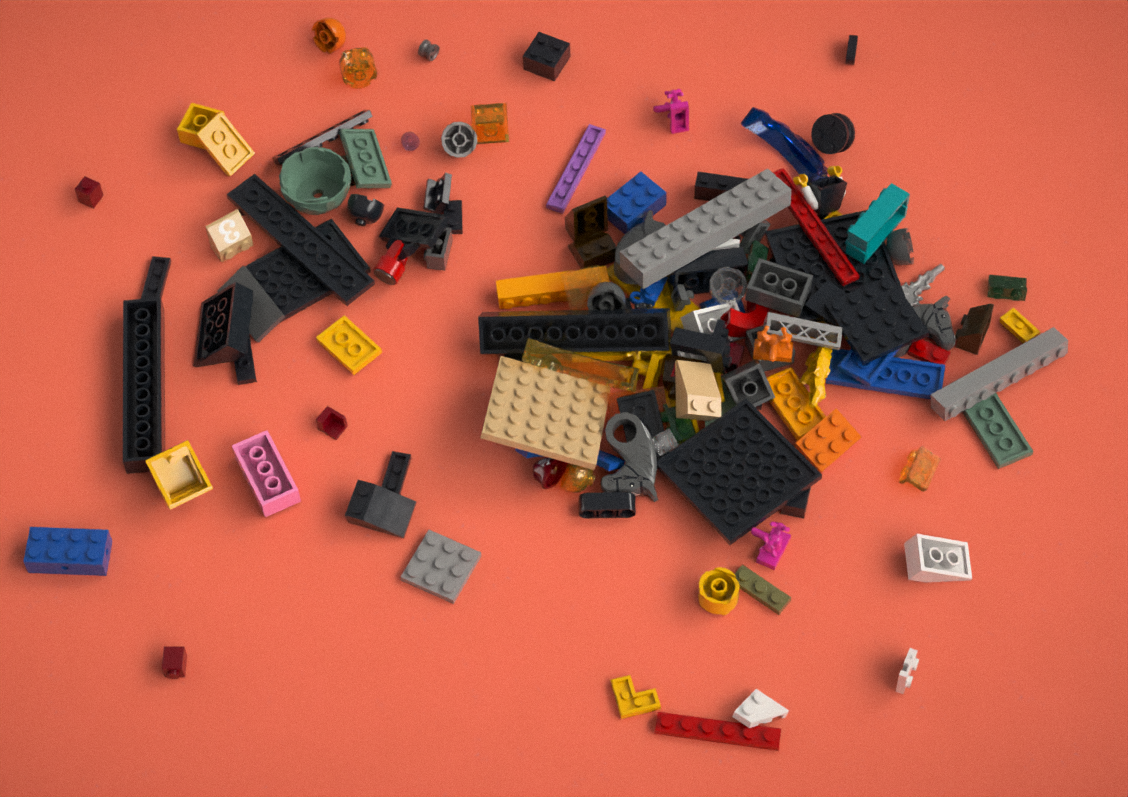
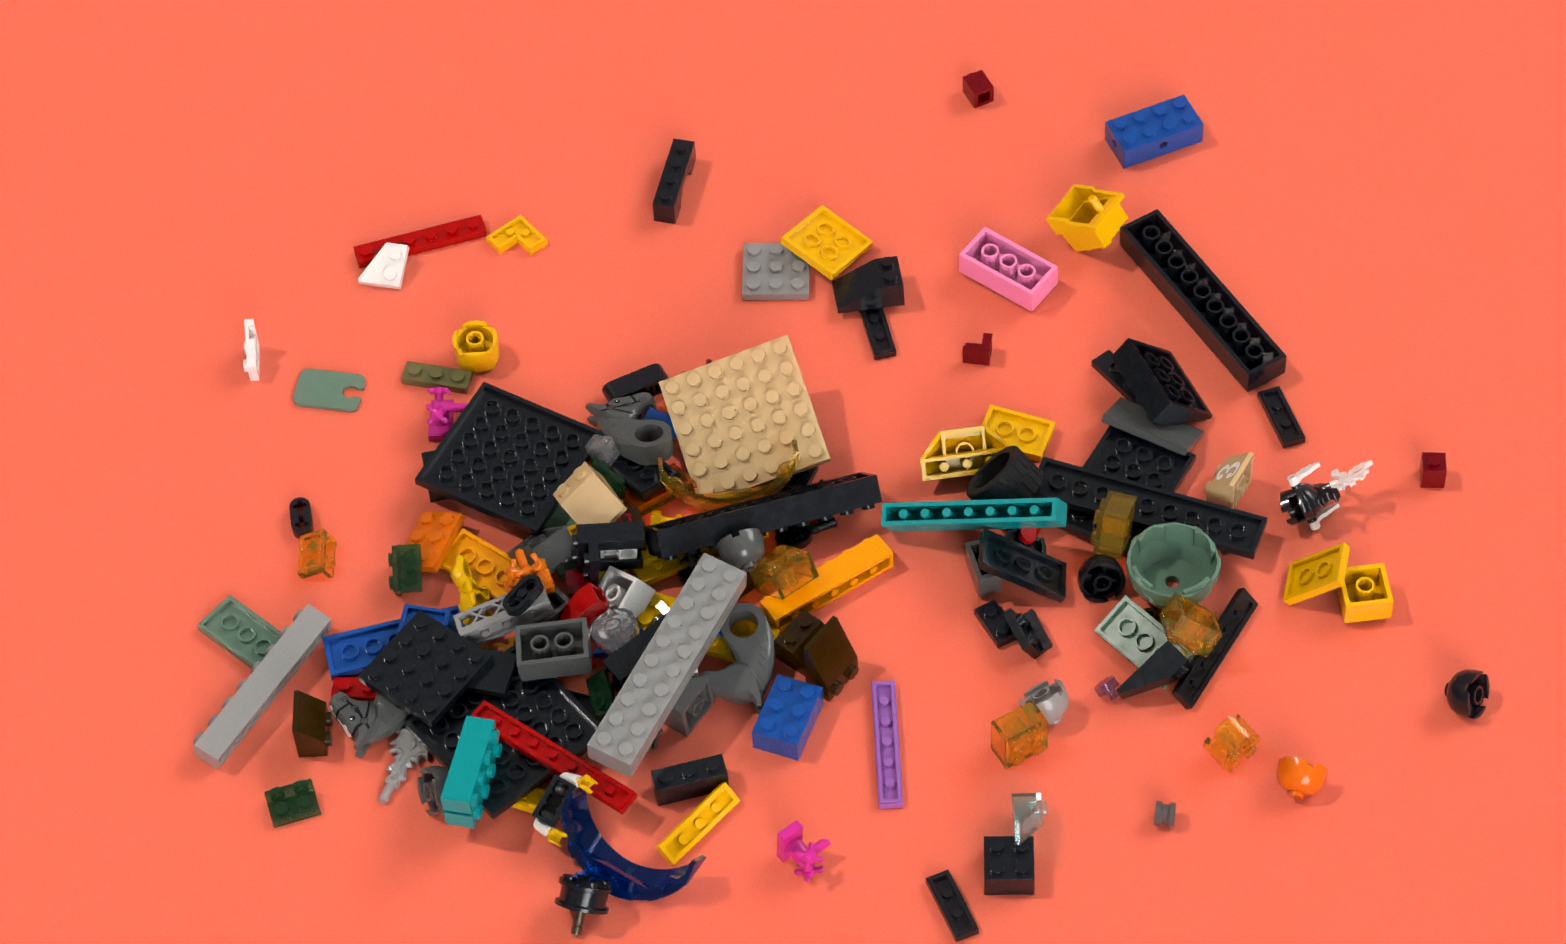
camera: 155 degrees right, 5 degrees down
(186, 201) = (1305, 499): none -> helmet
(189, 41) = (1467, 692): none -> black cylinder
(334, 132) = (1190, 625): none -> clear yellow brick
(335, 217) = (1113, 524): none -> clear yellow brick
(375, 127) = (1159, 670): none -> black slope
(389, 562) = (826, 242): none -> yellow plate
(399, 329) = (959, 452): none -> yellow wedge
(408, 292) = (1005, 476): none -> black tyre
(427, 262) = (974, 514): none -> teal brick
(463, 696) = (669, 191): none -> black arch
(518, 72) = (1027, 814): none -> clear light blue slope
(595, 55) = (952, 905): none -> black tile
(739, 159) = (697, 823): none -> yellow plate
(784, 318) = (521, 597): none -> black plate
(857, 620) = (325, 390): none -> sand green piece
(858, 415) = (406, 569): none -> clear green bracket
(923, 510) = (297, 518): none -> black beam
(937, 559) = (261, 469): white slope -> none
(1019, 326) = (260, 759): yellow plate -> none

